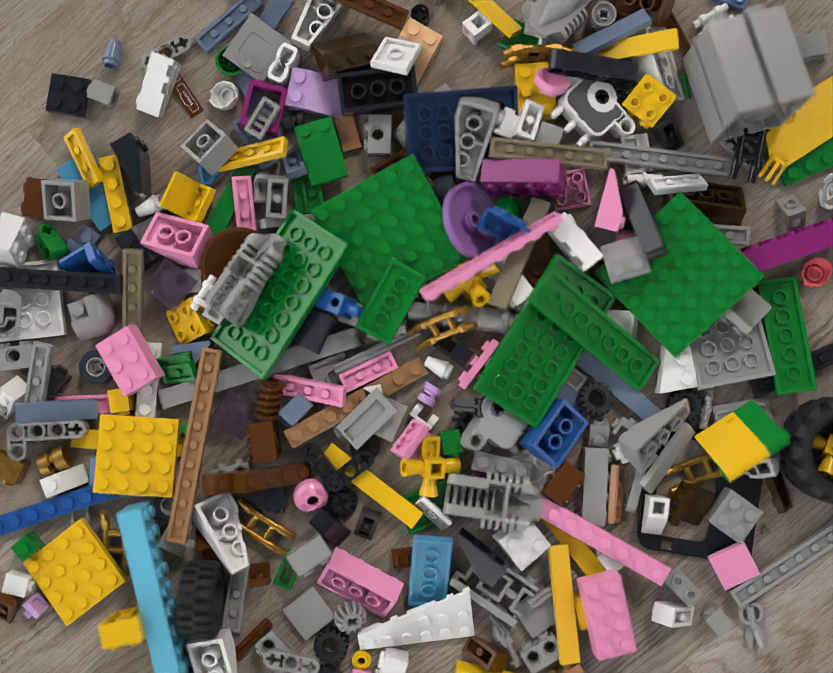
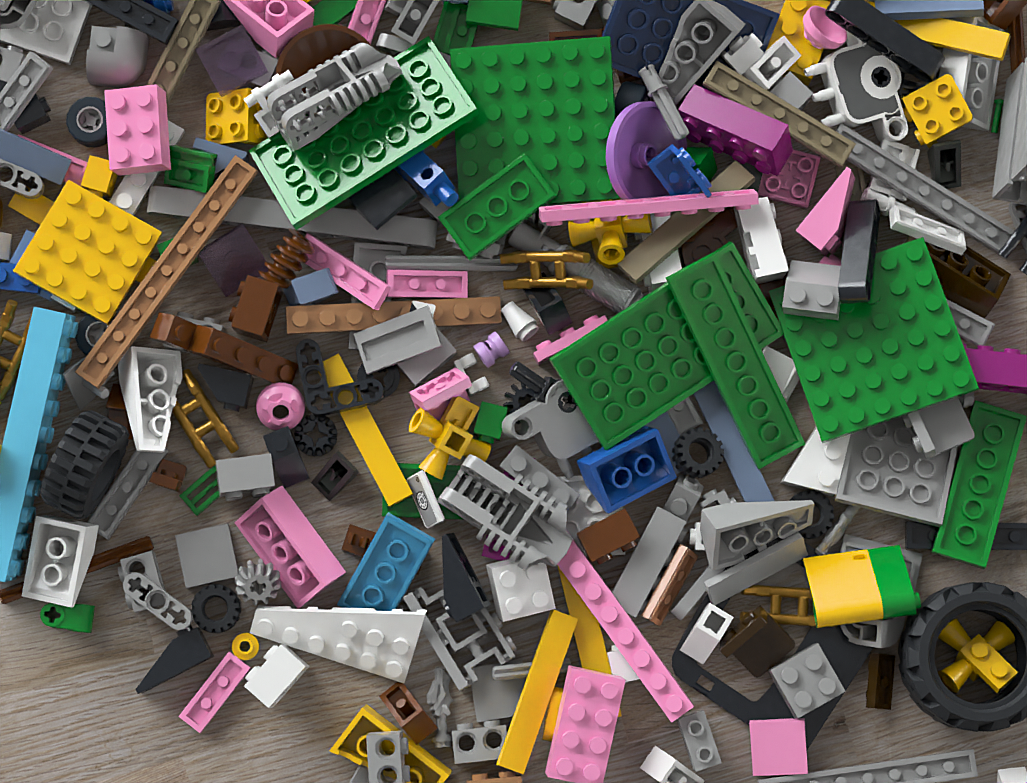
camera: 25 degrees right, 5 degrees down
(468, 180) = (658, 92): none -> light grey axle

